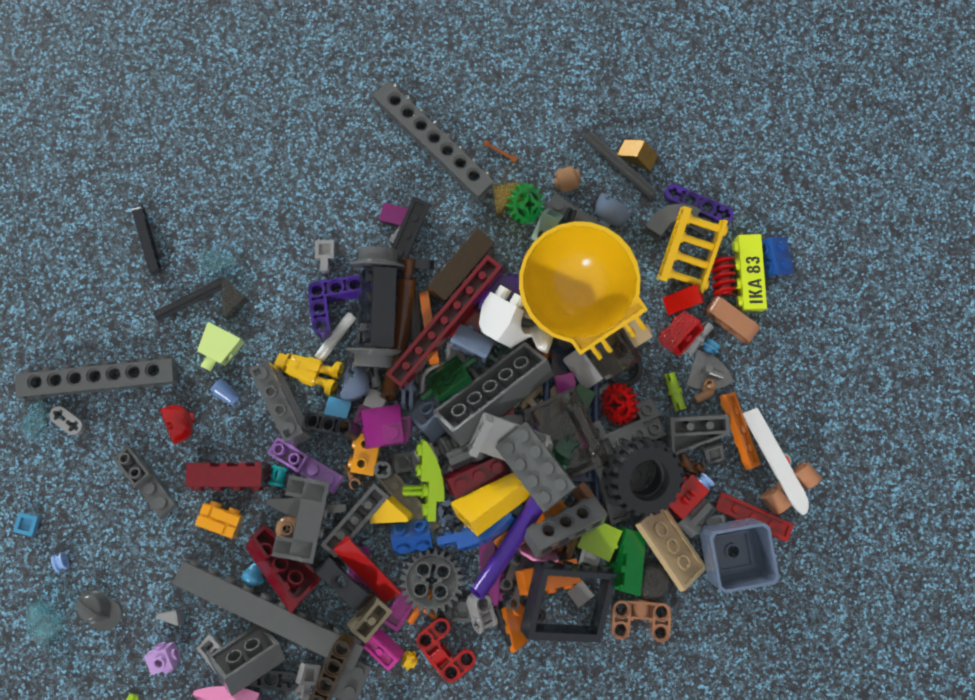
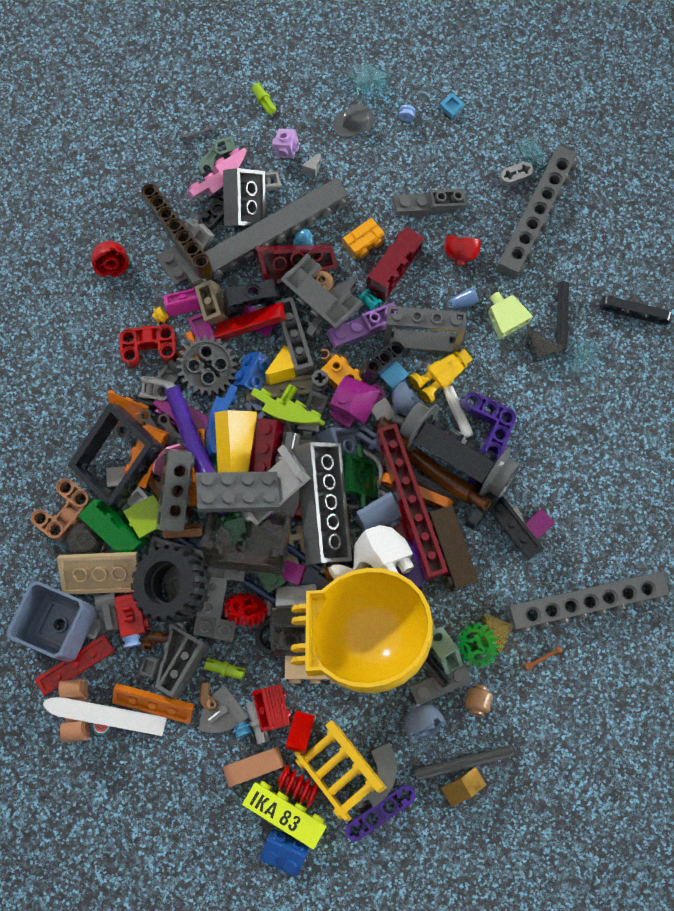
camera: 125 degrees right, 5 degrees down
(324, 252) = (537, 445): light grey plate -> none

